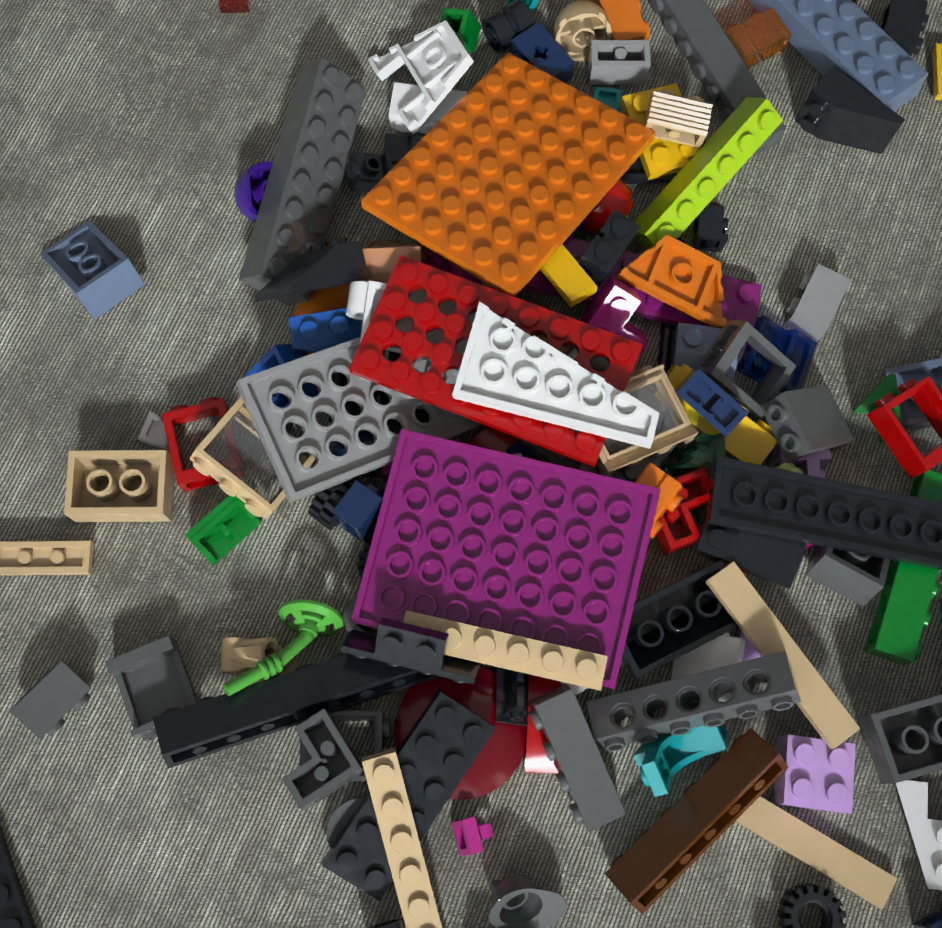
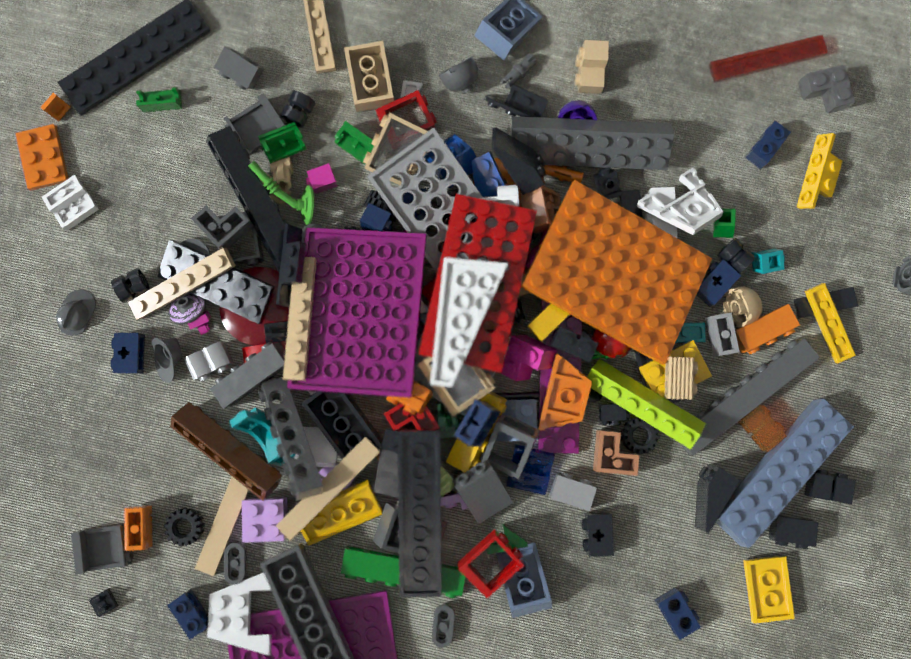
camera: 80 degrees right, 10 degrees up
(70, 850) = (159, 100): none -> green hinge
(145, 611) = (301, 103): none -> black wheel
(153, 348) = (460, 76): none -> dark grey cylinder
(166, 266) = (519, 71): none -> dark grey pin
(186, 162) = (591, 63): none -> tan brick
(197, 645) = (282, 142): none -> green hinge
(216, 271) = (520, 102): none -> black bracket
(269, 591) = (321, 178): none -> dark pink brick
(347, 217) = (553, 170): none -> orange pin
(454, 852) = (186, 308): none -> dish
(540, 830) = (208, 361): none -> light grey brick
(755, 185) = (631, 444): none -> black tyre
(773, 240) = (607, 455): none -> nougat brick
(810, 624) = (343, 512): none -> yellow tile
(877, 837) = (234, 562): none -> dark grey plate
(883, 277) = (604, 544): none -> black brick

